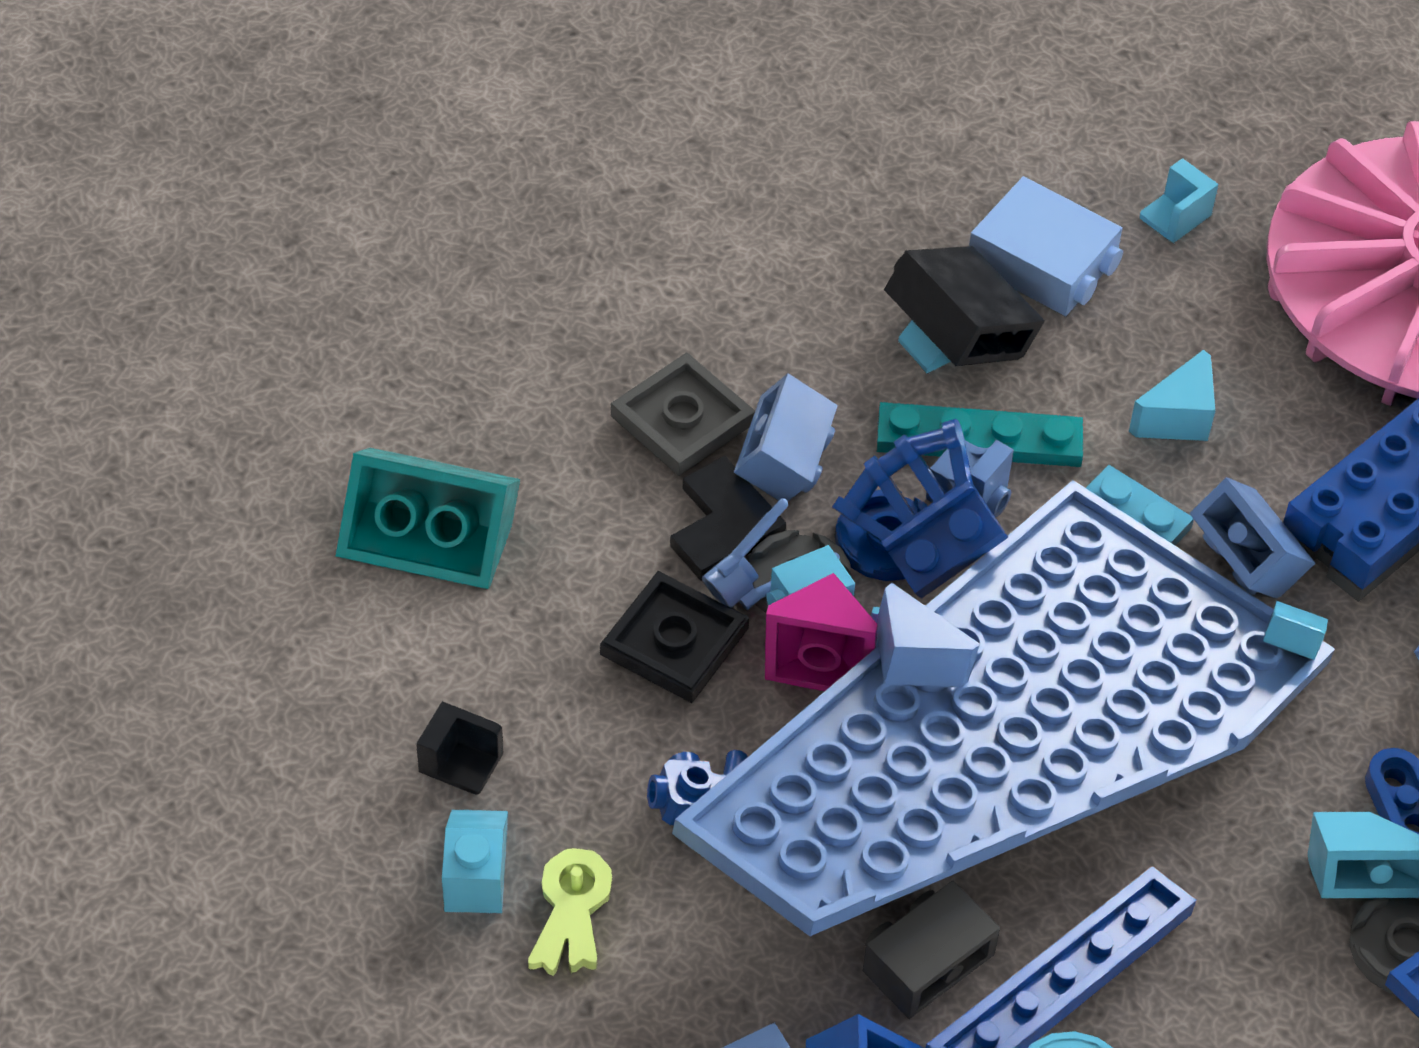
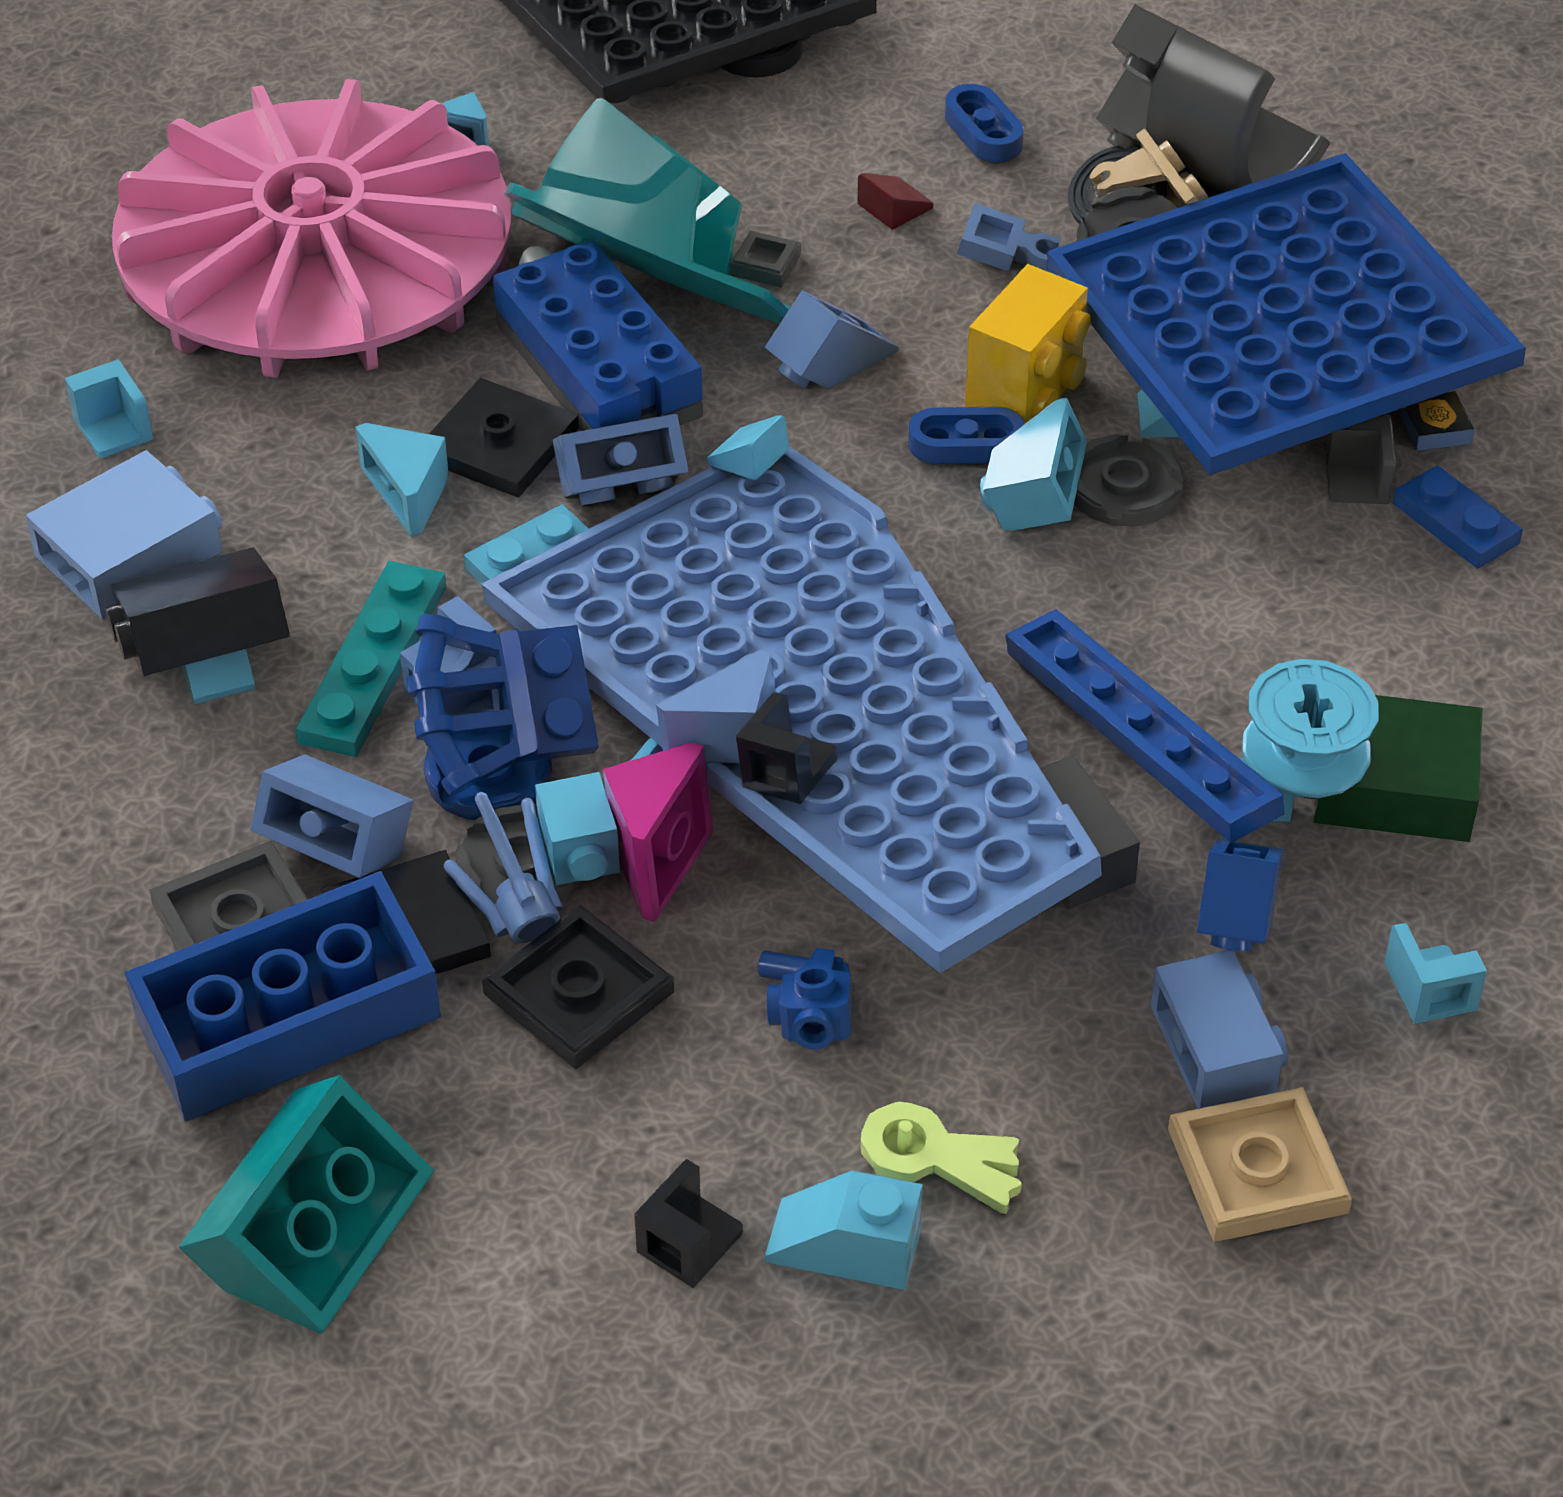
camera: 75 degrees left, 5 degrees down
(599, 449) = (283, 995): none -> blue brick
(883, 685) = (777, 759): none -> black panel
(1265, 454) = (502, 436): none -> black plate

